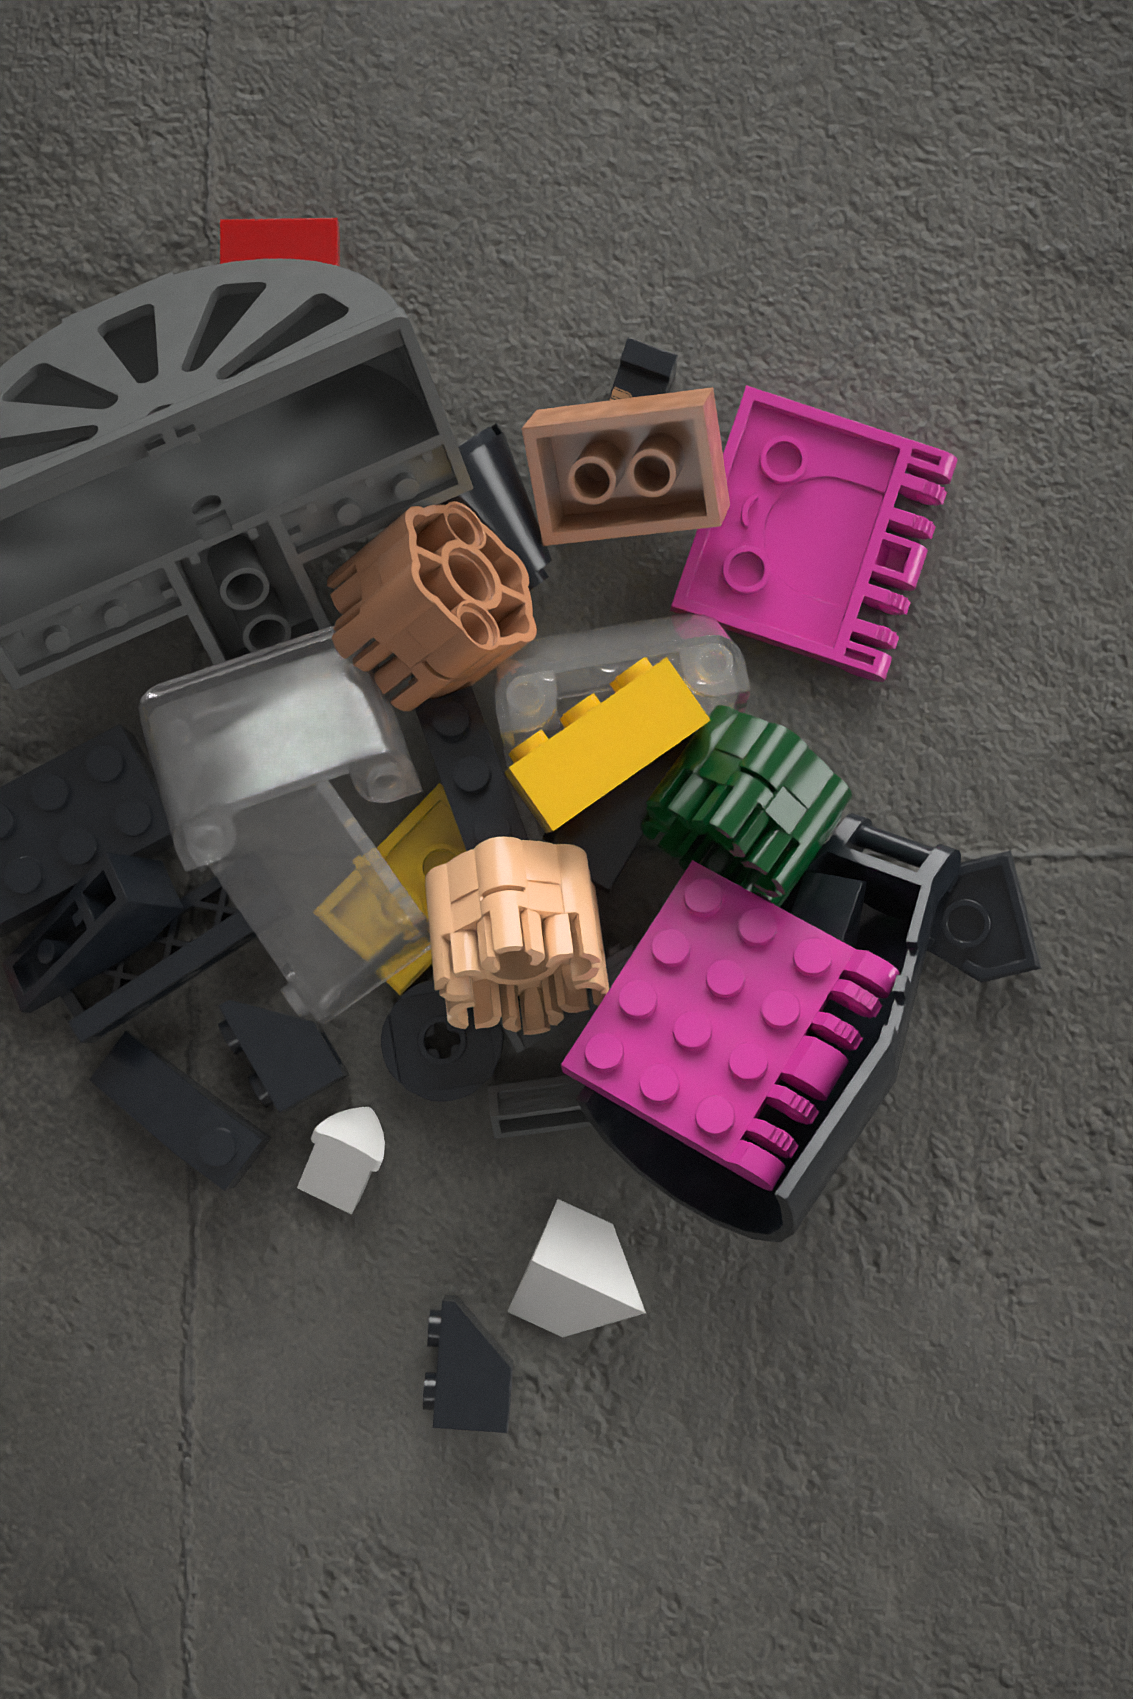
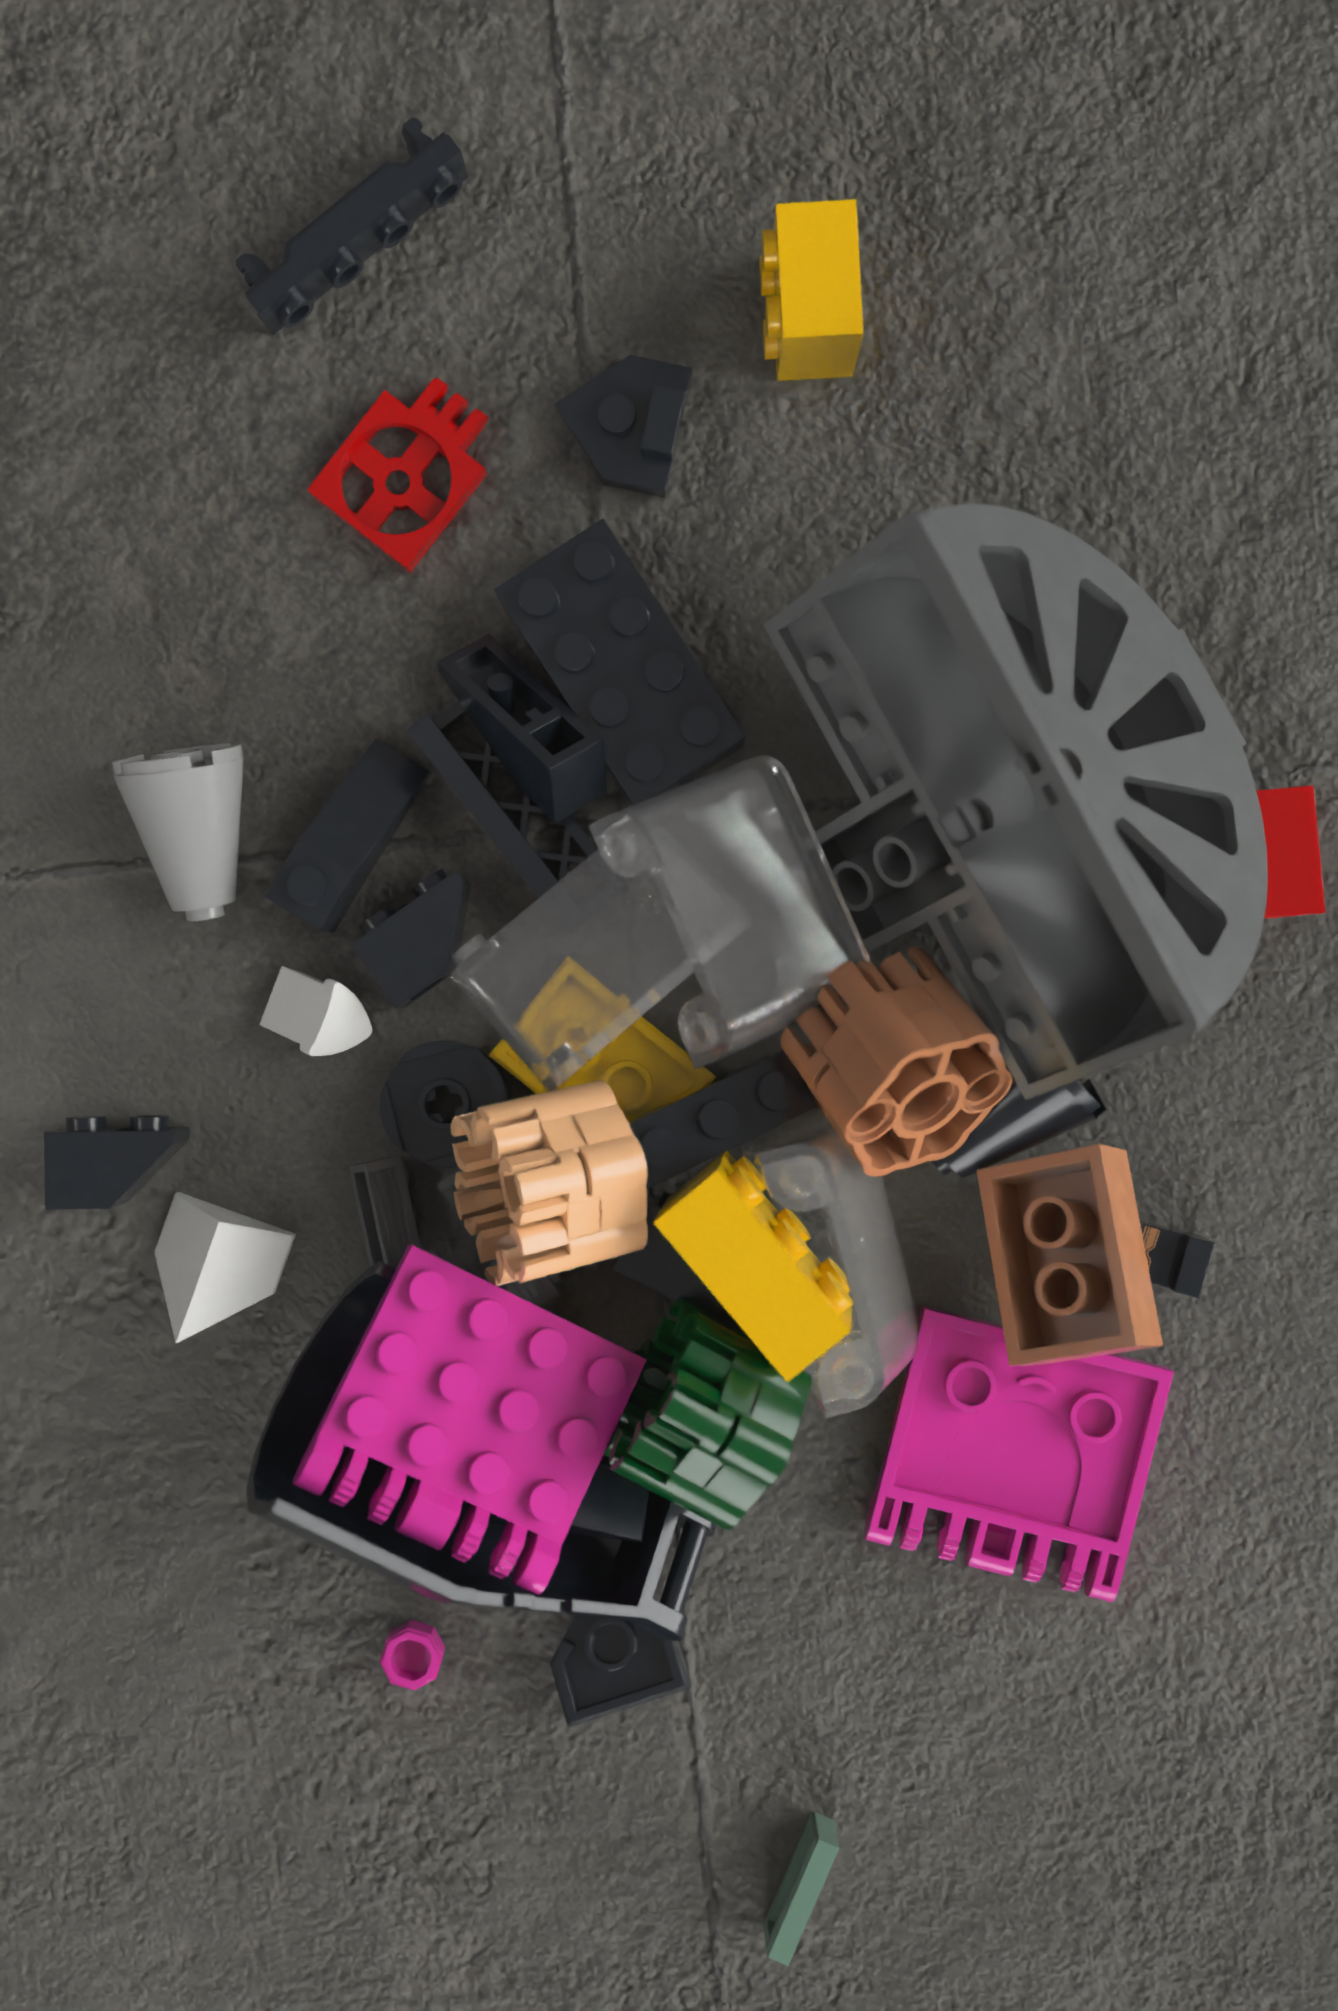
camera: 85 degrees right, 5 degrees up
(149, 1262) = (188, 821): none -> light grey cone
(967, 1115) = (412, 1654): none -> dark pink tile

